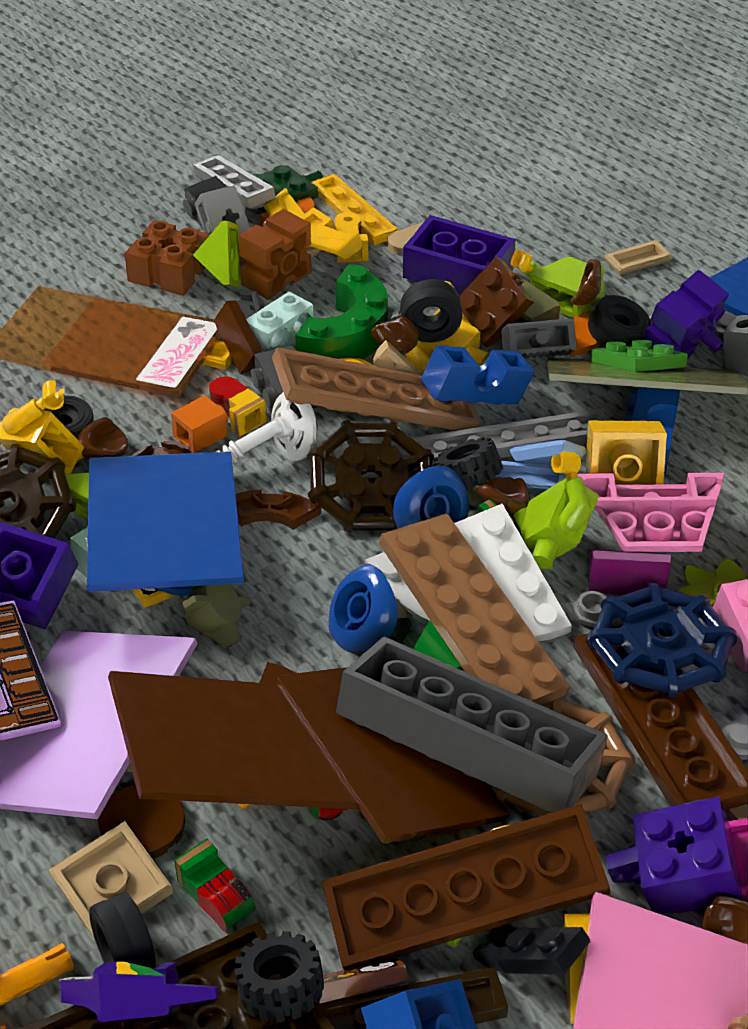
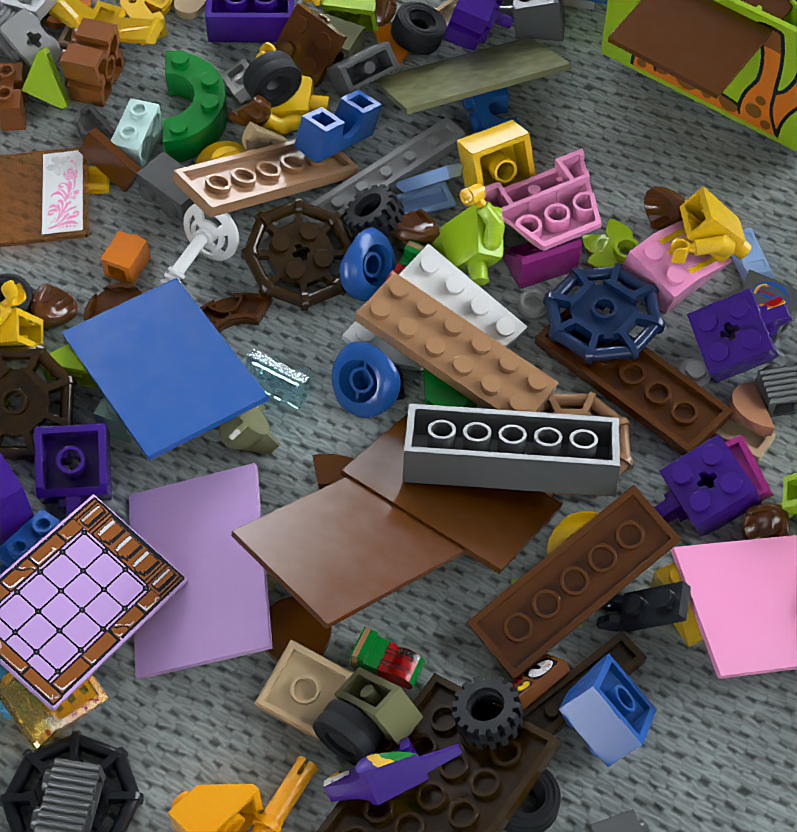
camera: 25 degrees left, 15 degrees up
(171, 922) = (382, 703): none -> olive brick
(239, 404) = (148, 223): leg -> none
(277, 580) = (279, 379): none -> clear light blue tile
(639, 356) = (453, 56): bright green plate -> none

